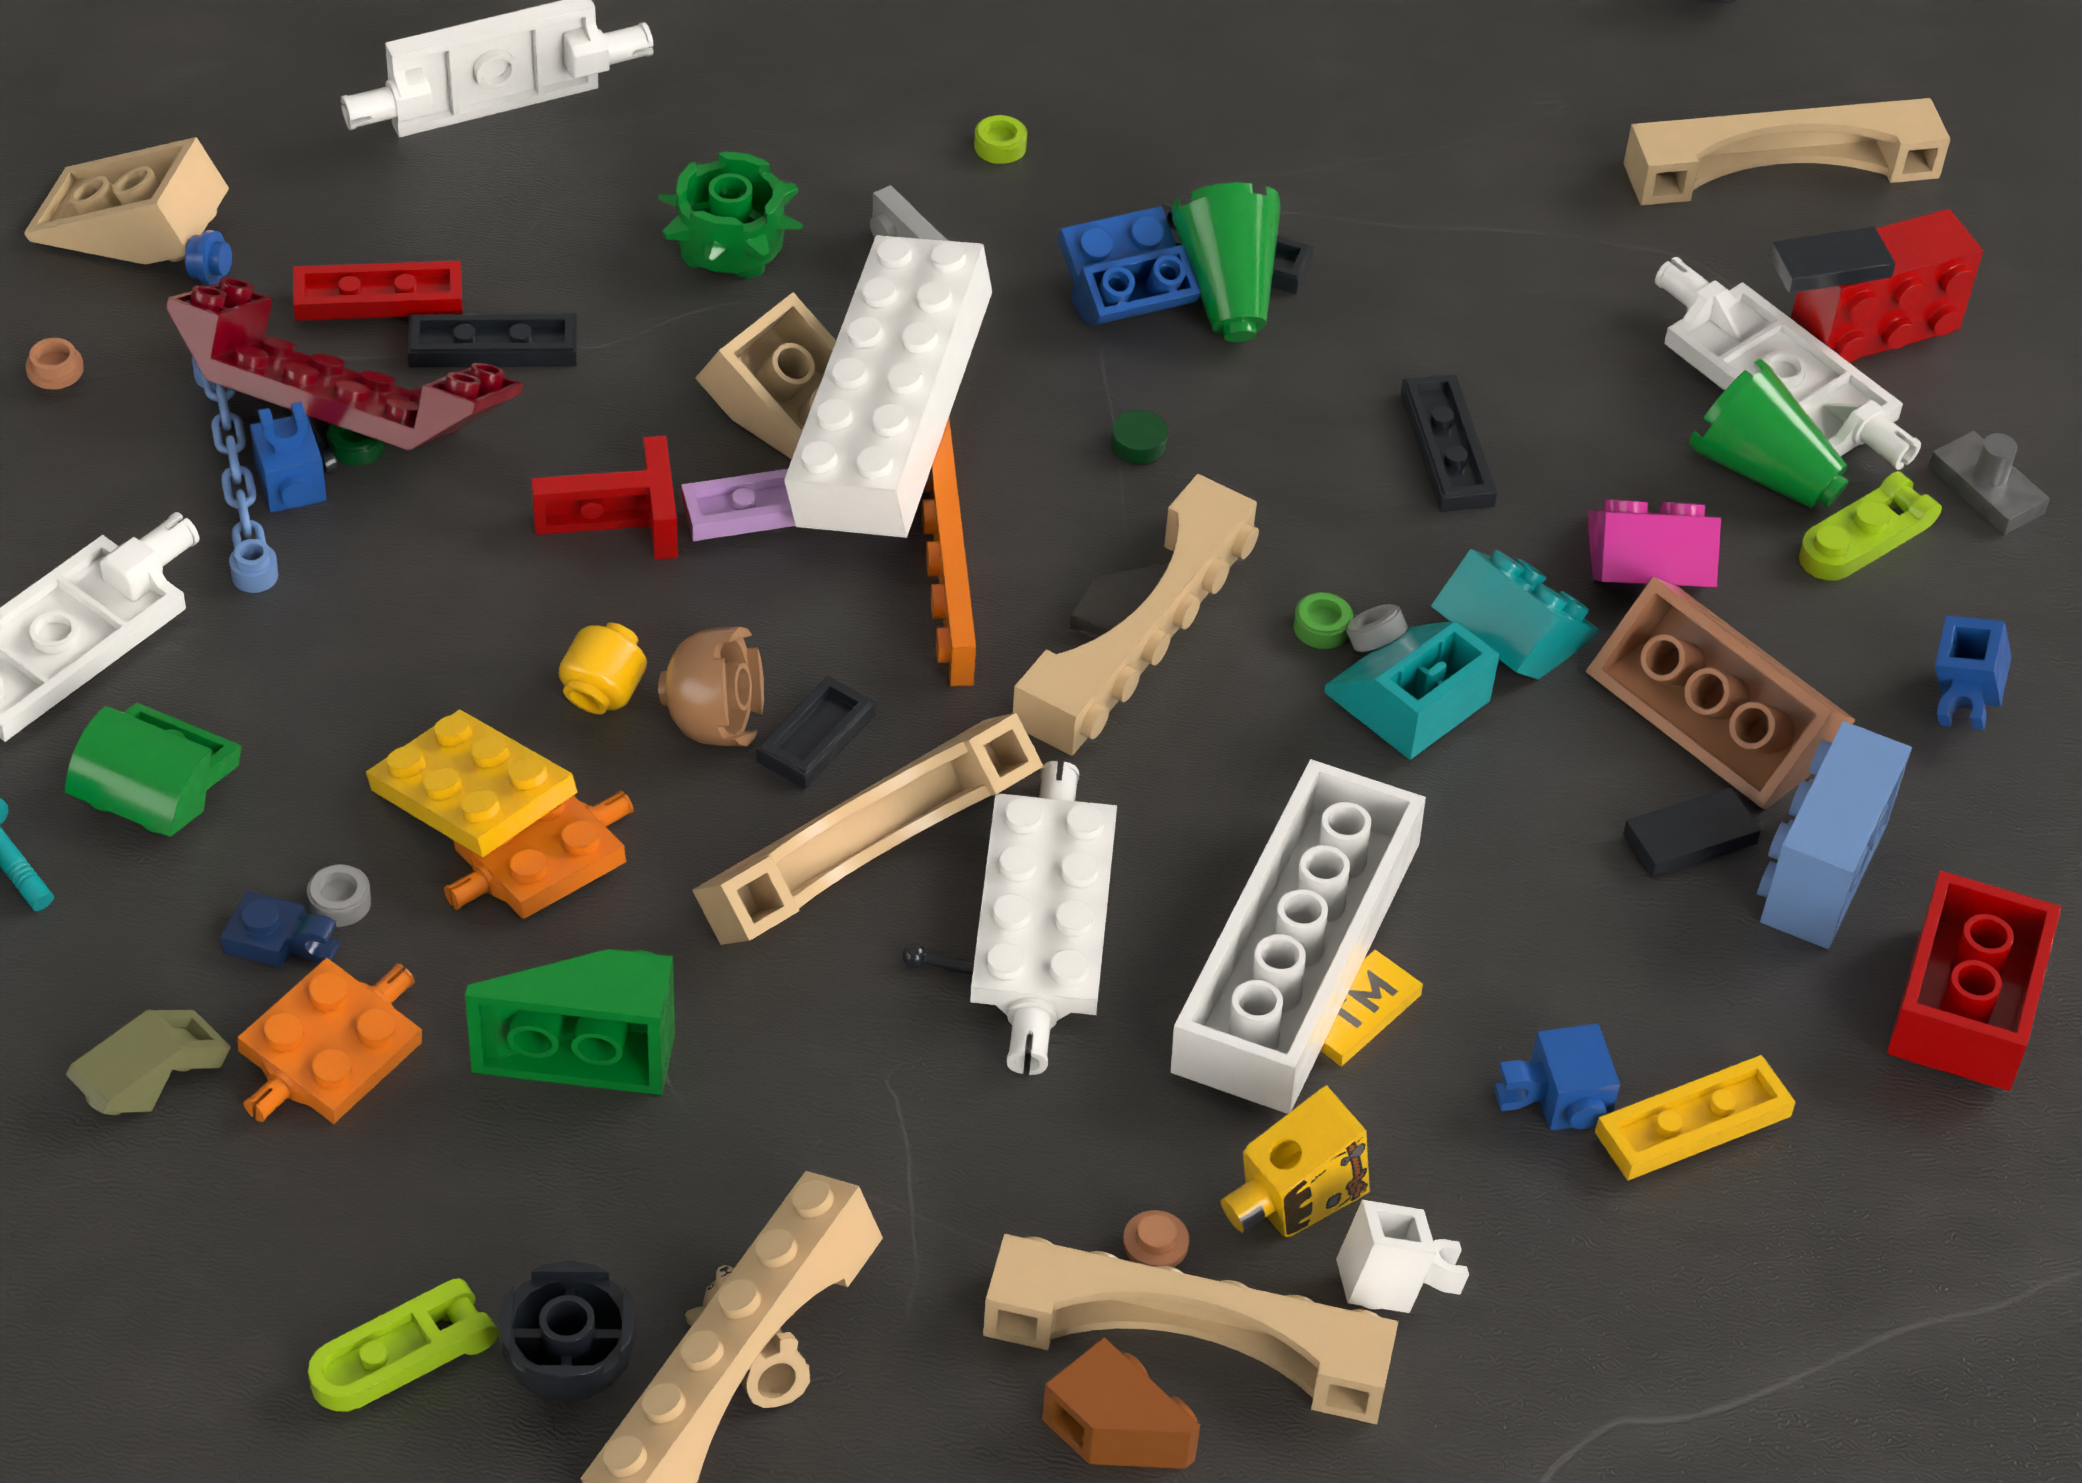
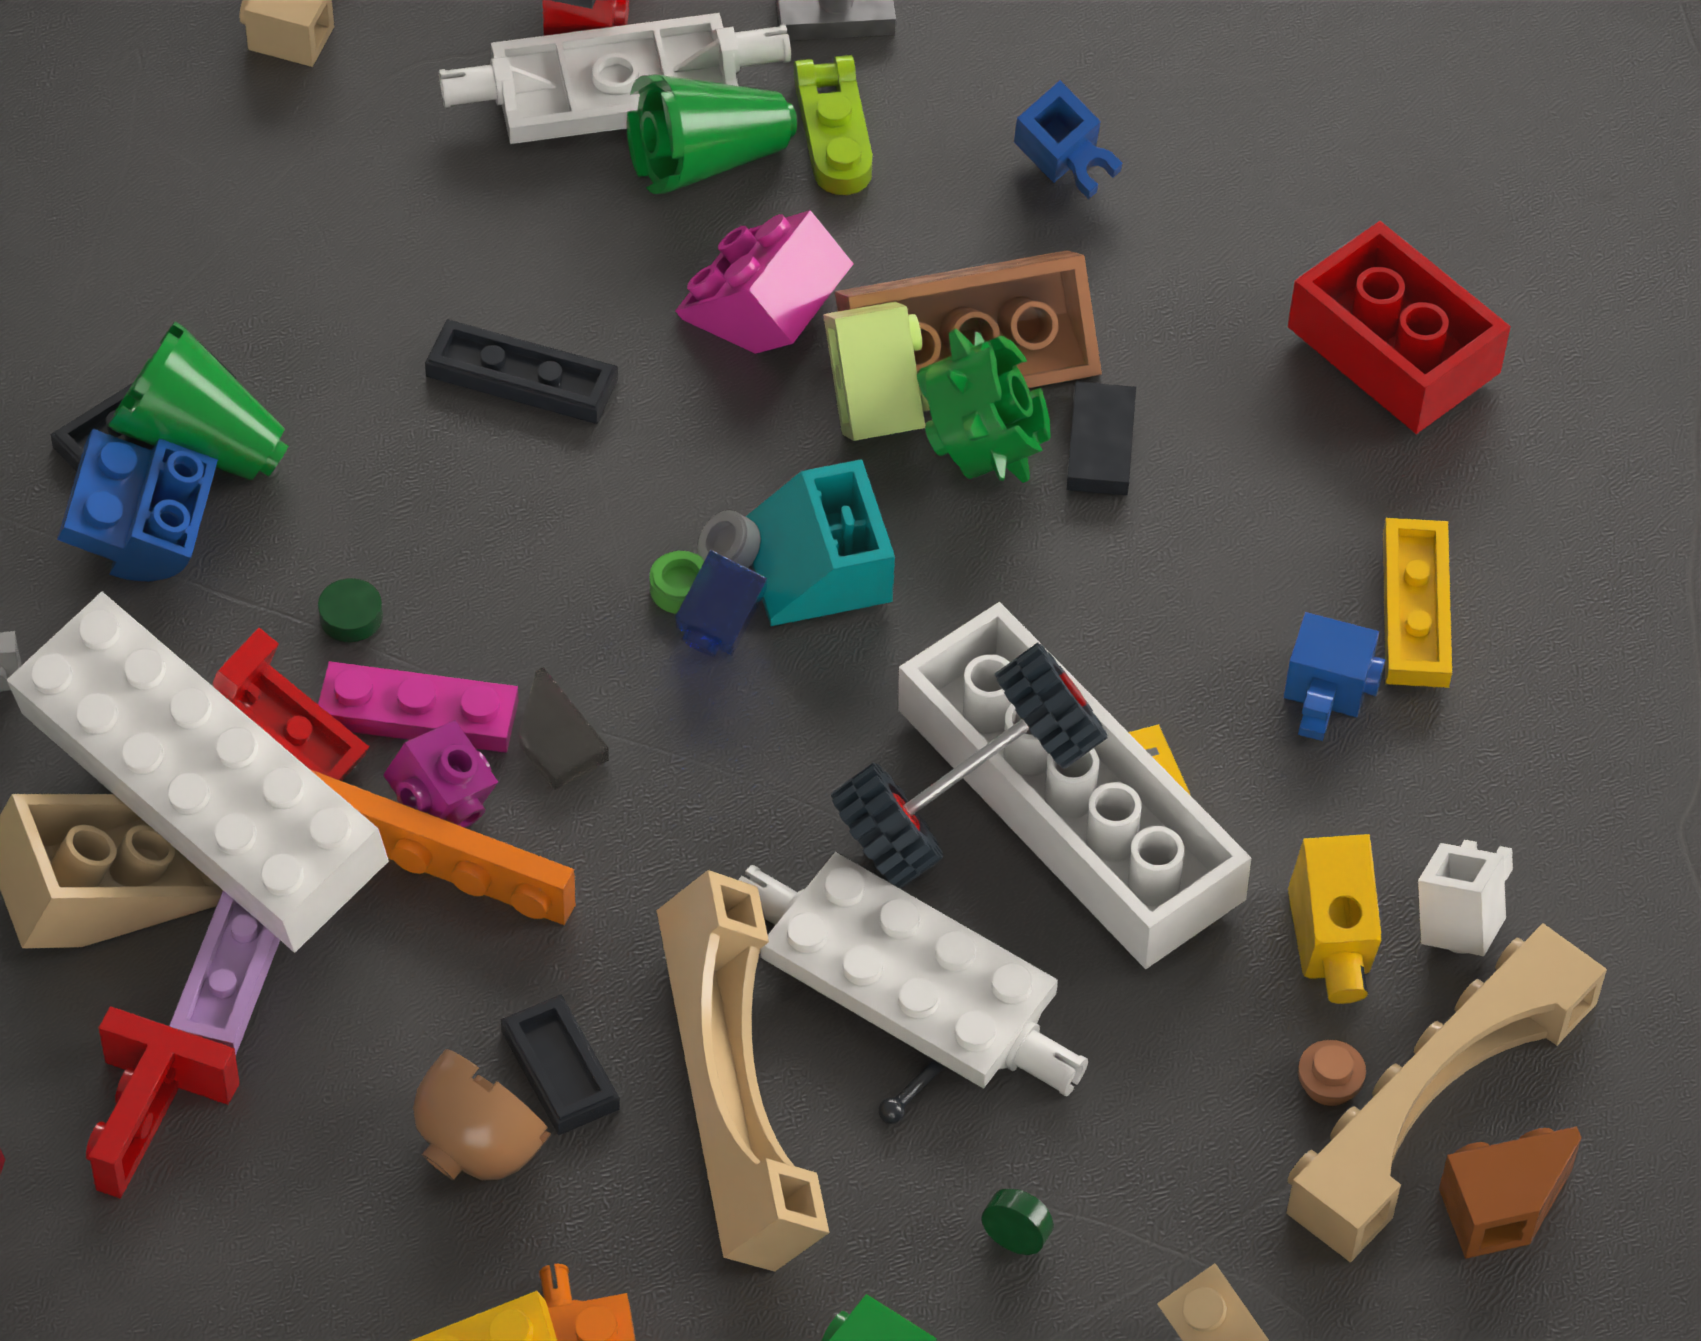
camera: 60 degrees left, 5 degrees up
(602, 668) = (375, 1210): yellow head -> none
(856, 1073) = (1017, 1221): none -> dark green tile
(994, 423) = (286, 711): none -> red bracket
(1008, 541) = (442, 775): none -> magenta brick
(1072, 692) = (529, 619): tan arch -> none
(1080, 511) = (415, 703): none -> dark pink plate
(1302, 638) = (720, 605): none -> clear blue brick
(1310, 844) = (890, 824): none -> black axle
(1515, 612) = (783, 429): teal slope -> none
(1608, 635) = (876, 370): none -> yellowish green brick
(1628, 719) = (984, 408): none -> green brick
(1833, 833) = (1197, 333): medium blue brick -> none

